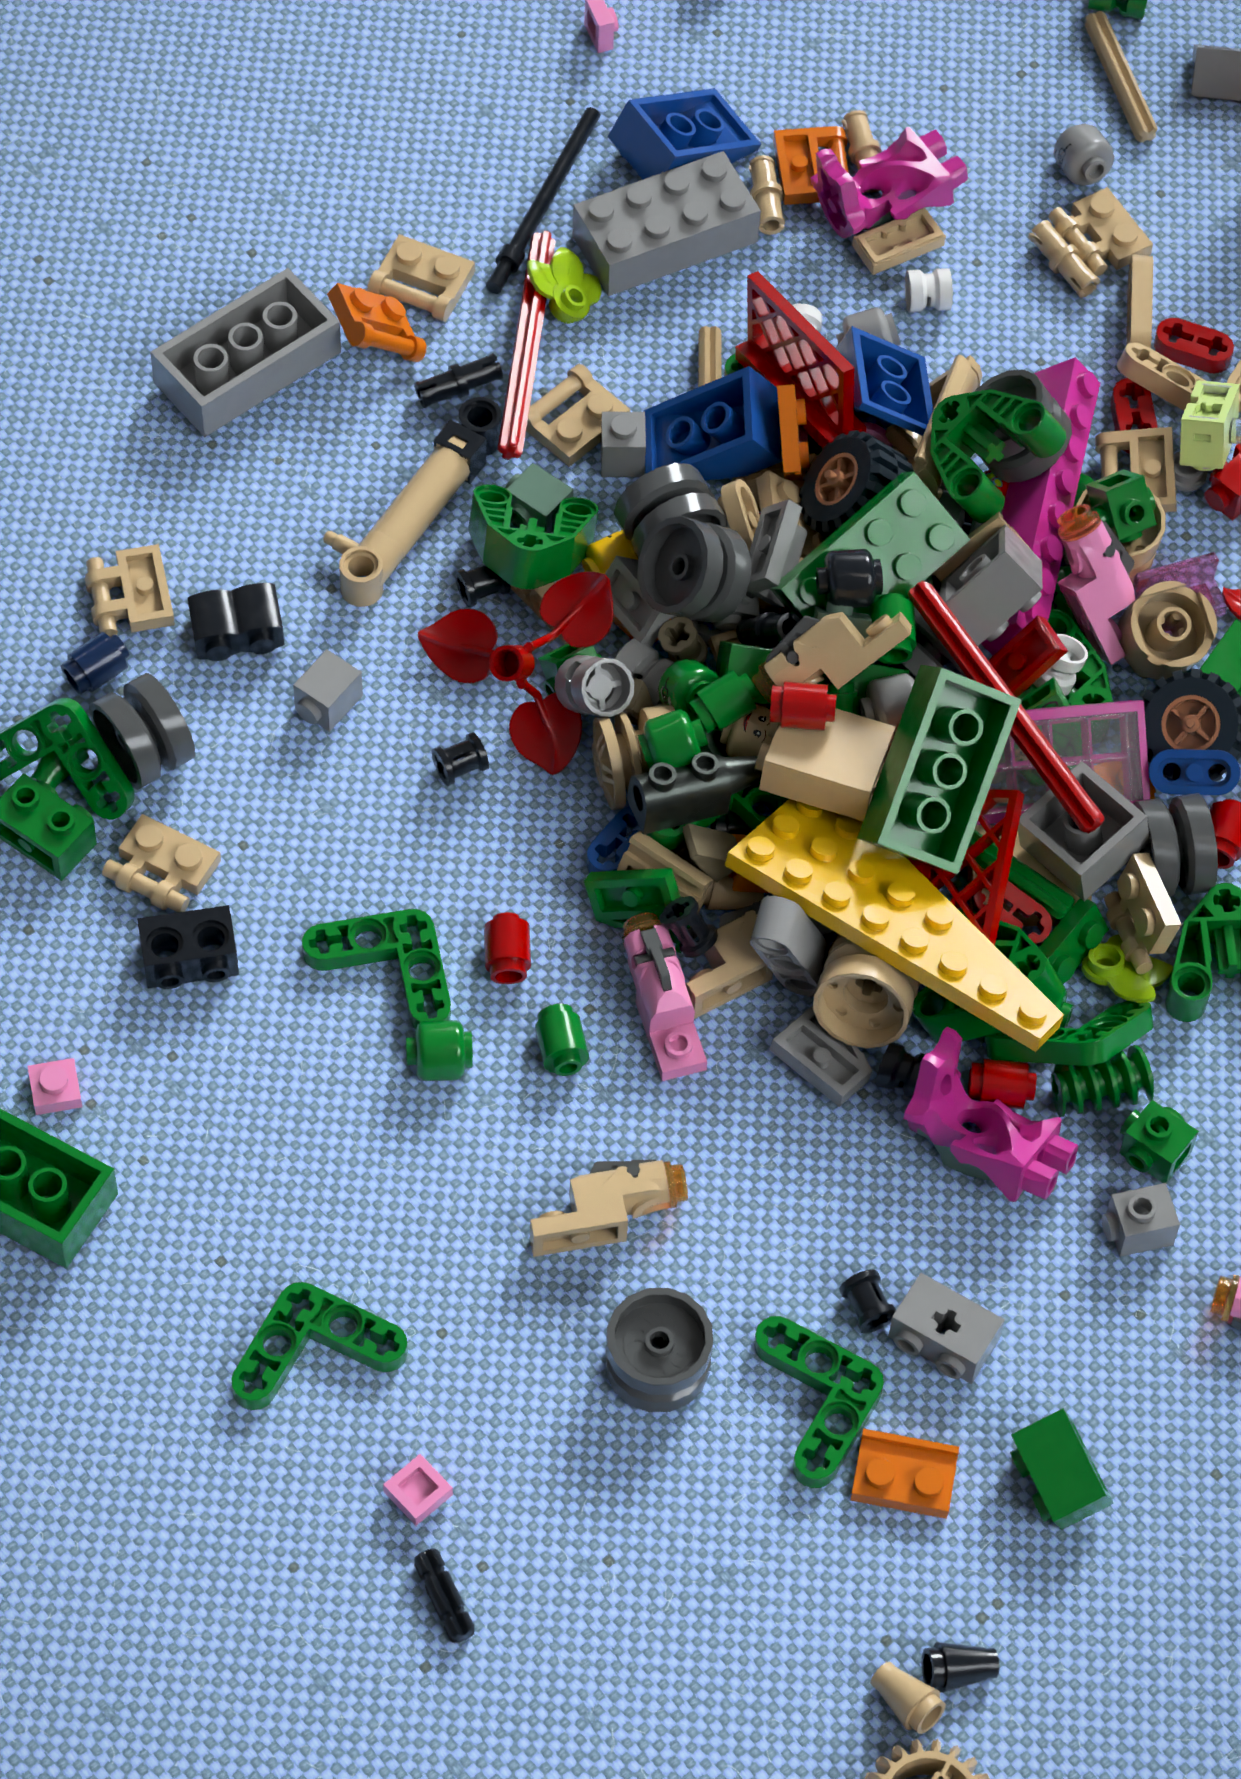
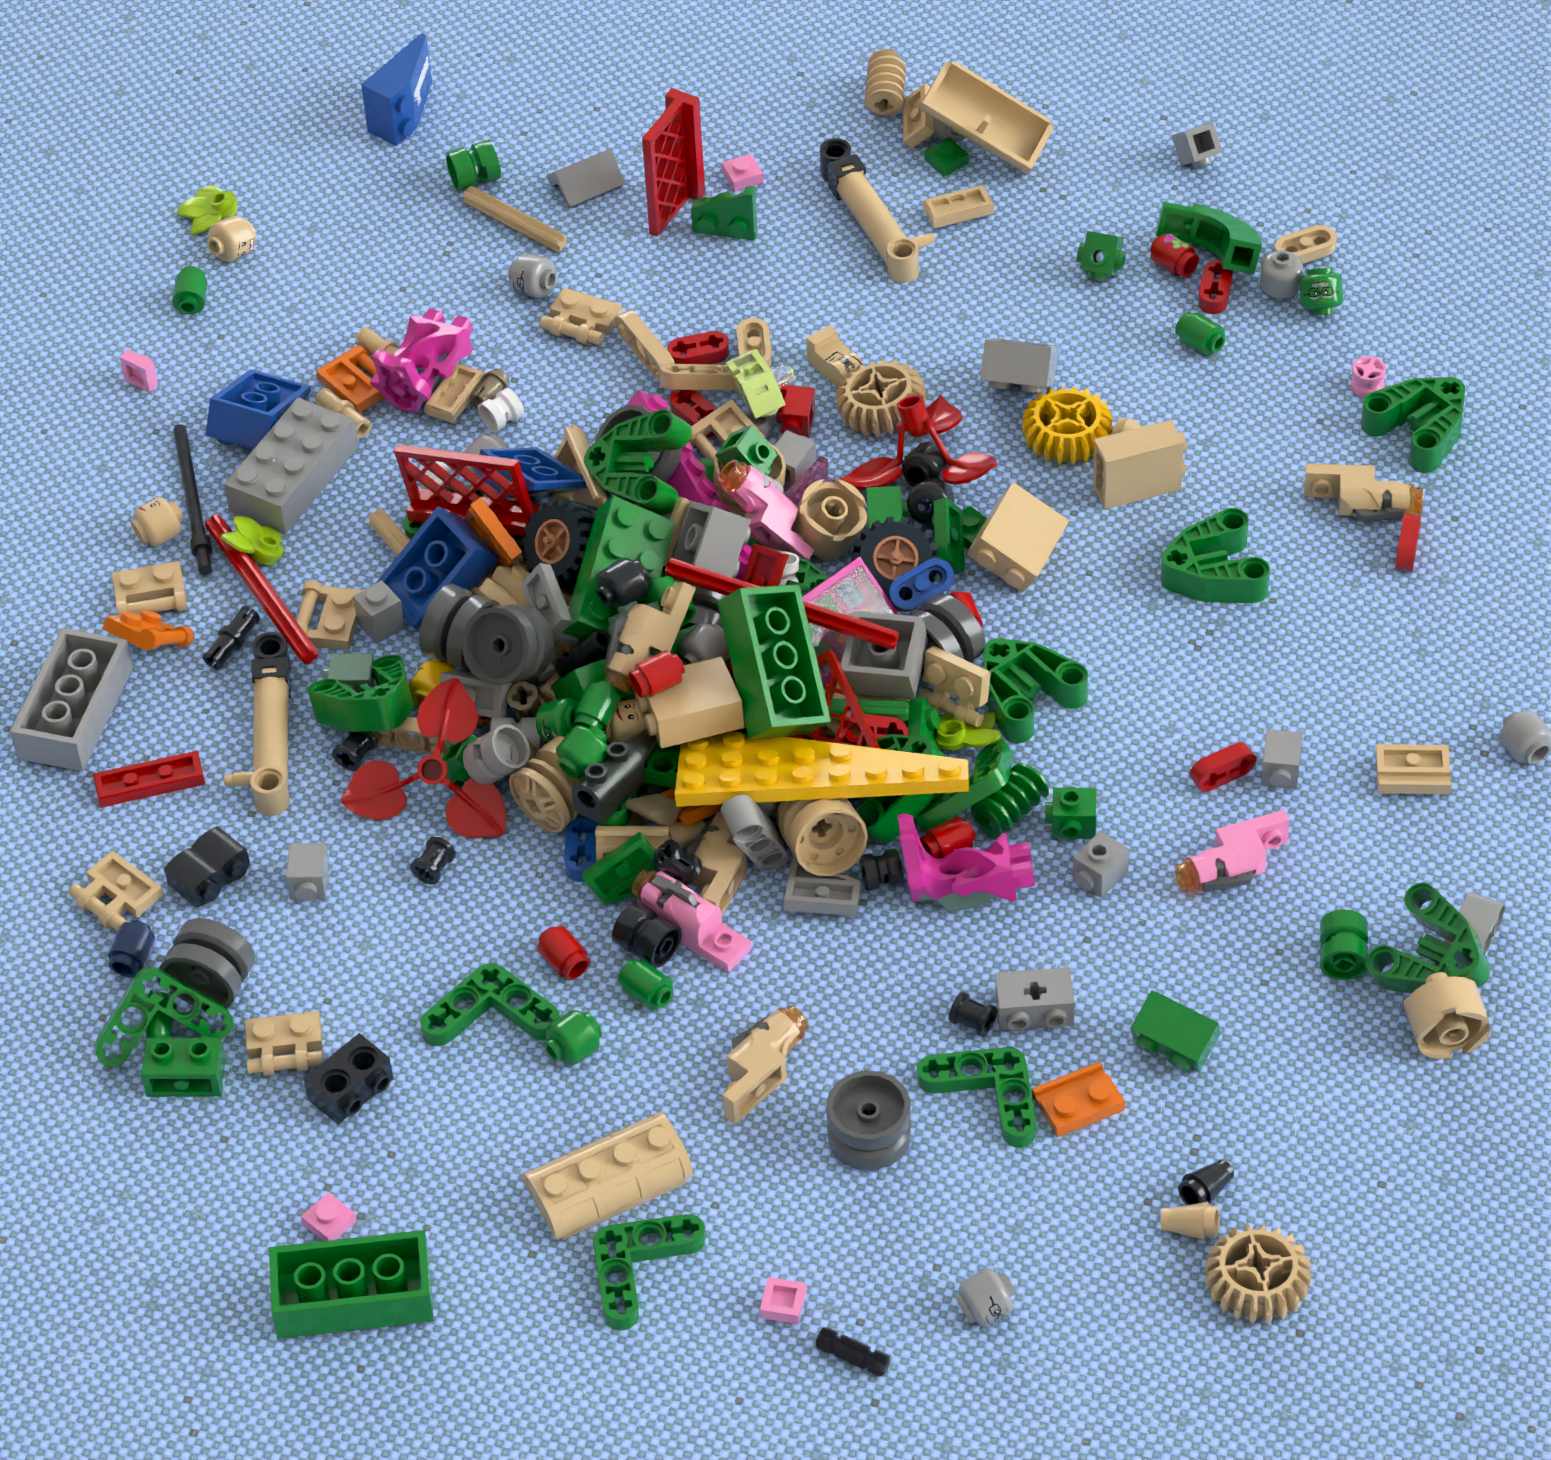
camera: 30 degrees left, 10 degrees down
(260, 486) = (148, 779): none -> red tile
(352, 1229) = (609, 1176): none -> tan container
(483, 204) = (157, 521): none -> tan head
(599, 978) = (646, 934): none -> black wheel
(621, 1633) = (986, 1297): none -> light grey head
(946, 255) = (494, 383): none -> dark tan pin
(1064, 258) = (572, 344): tan pin -> none
(1188, 533) = (798, 455): none -> light grey brick

